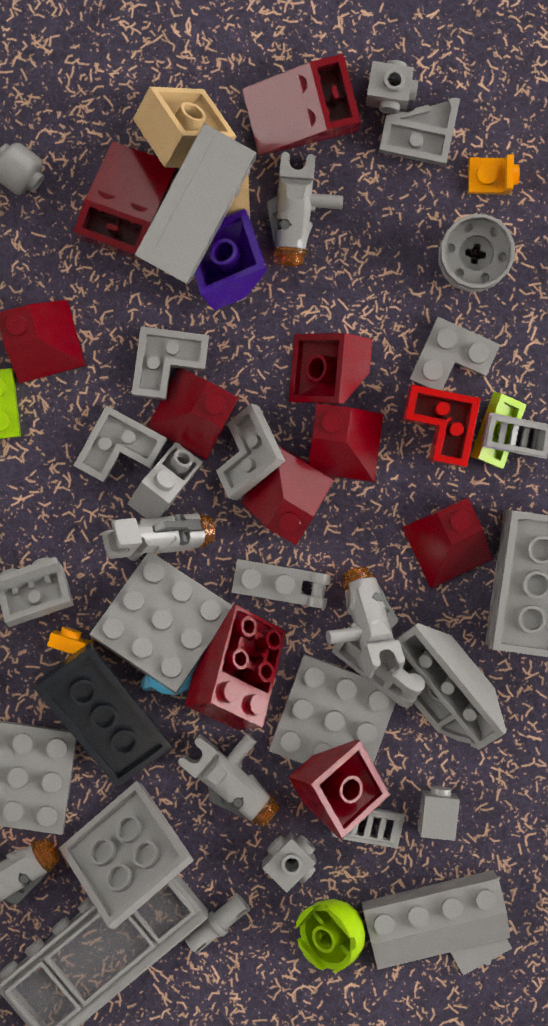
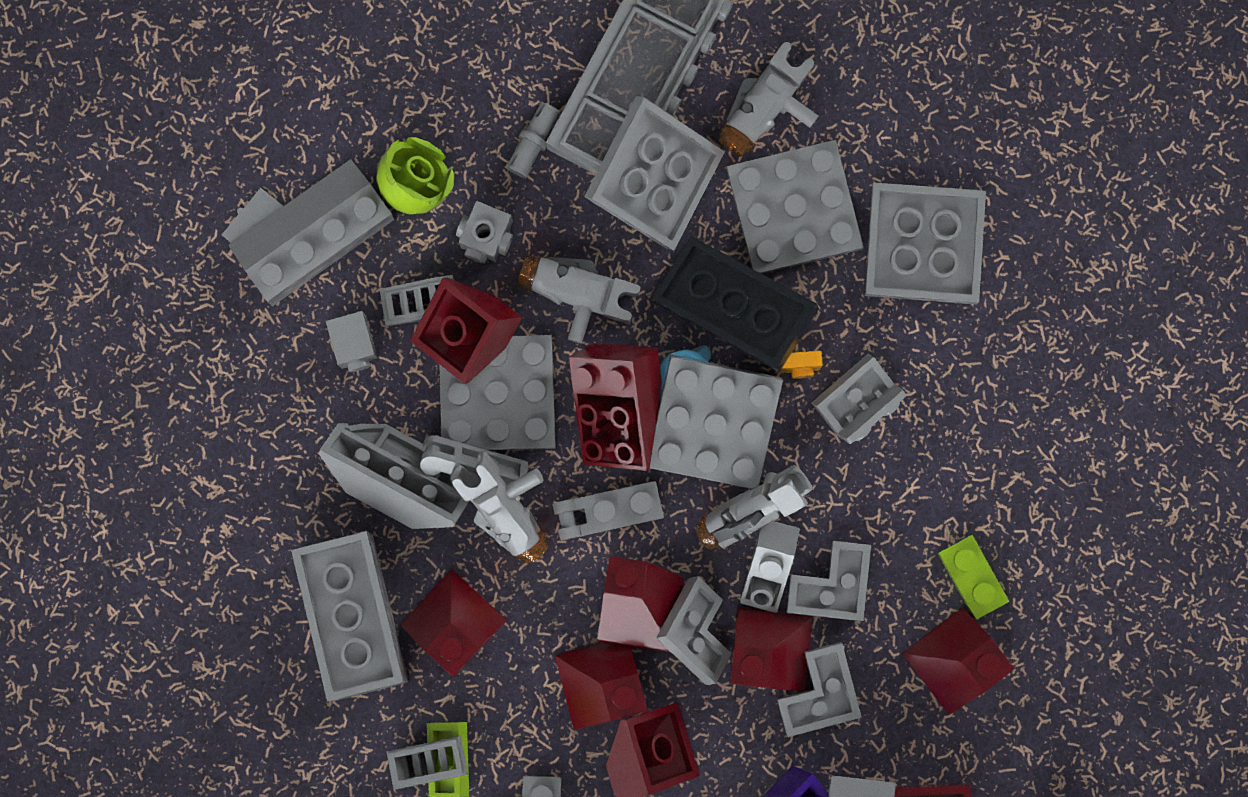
camera: 160 degrees right, 5 degrees down
(450, 415) = (500, 754): red brick -> none

